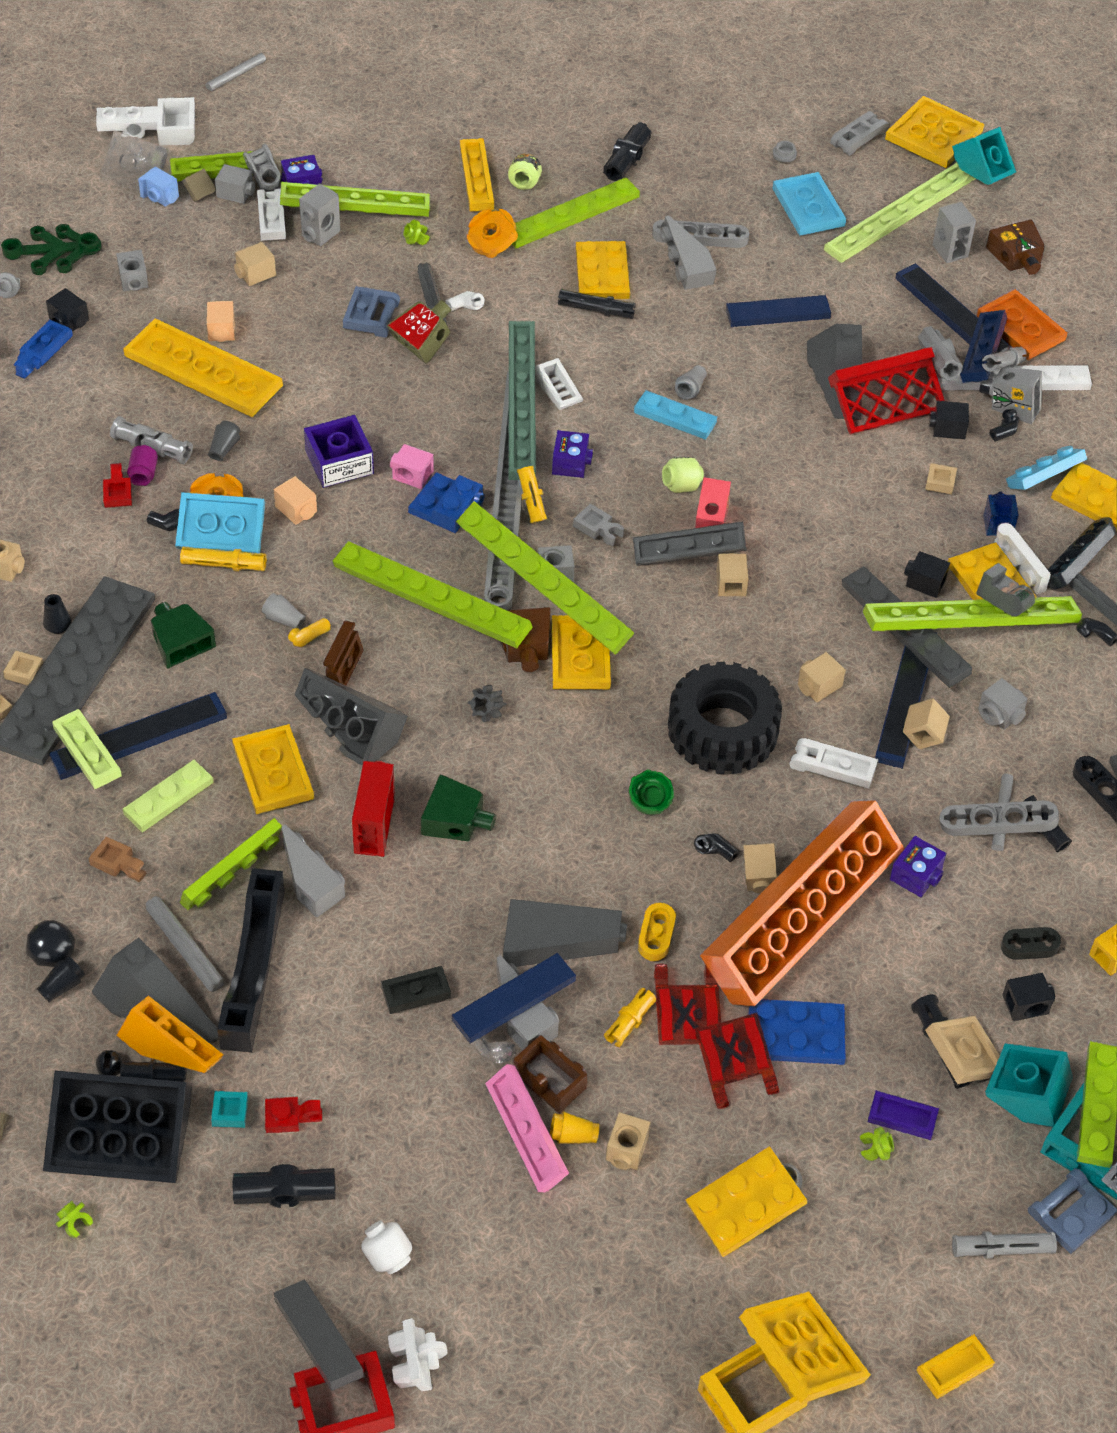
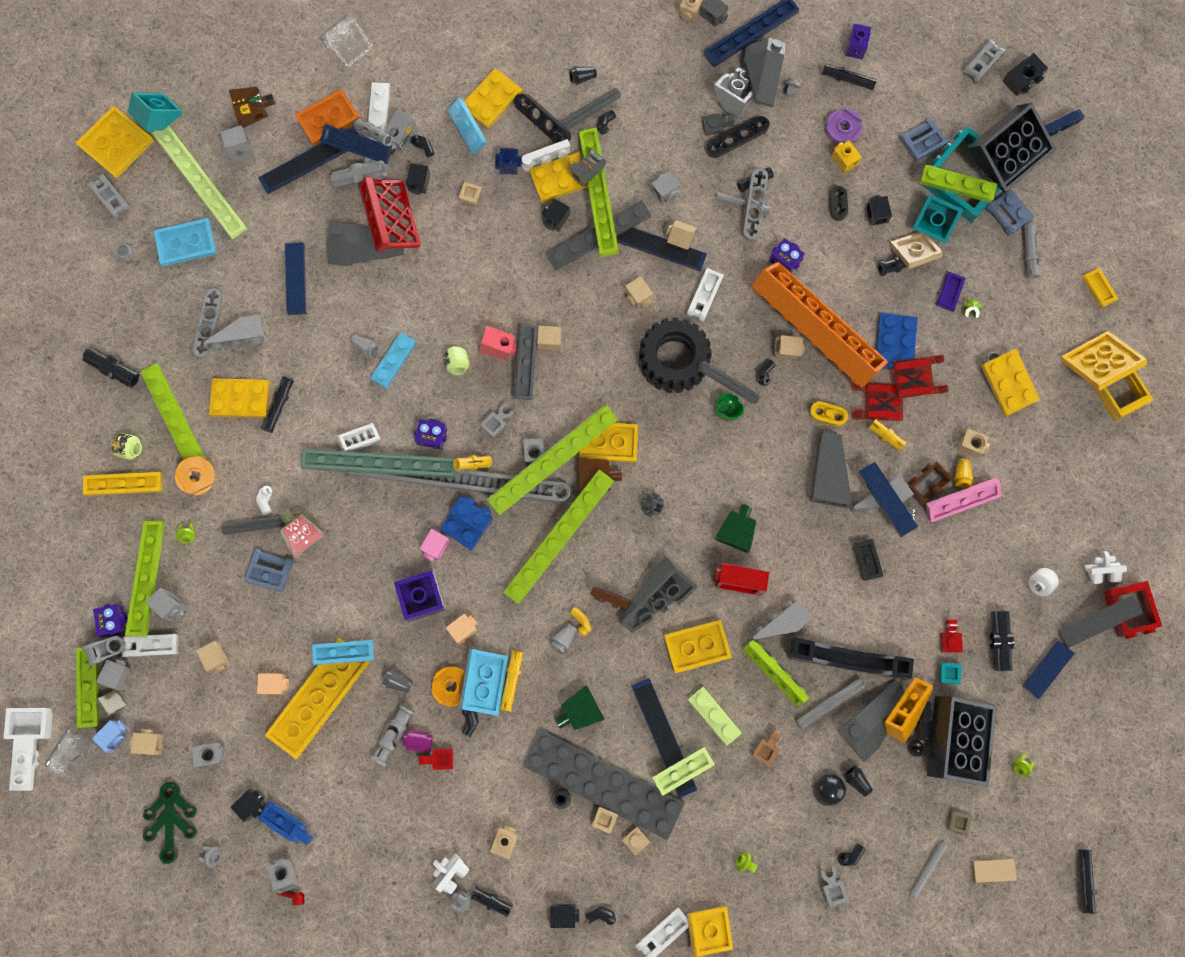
camera: 85 degrees left, 25 degrees up
(149, 217) = (146, 743): none -> tan brick
(236, 1264) = (1048, 669): none -> dark blue tile
(260, 377) = (343, 652): none -> medium azure plate
(687, 781) = (728, 382): none -> dark grey axle

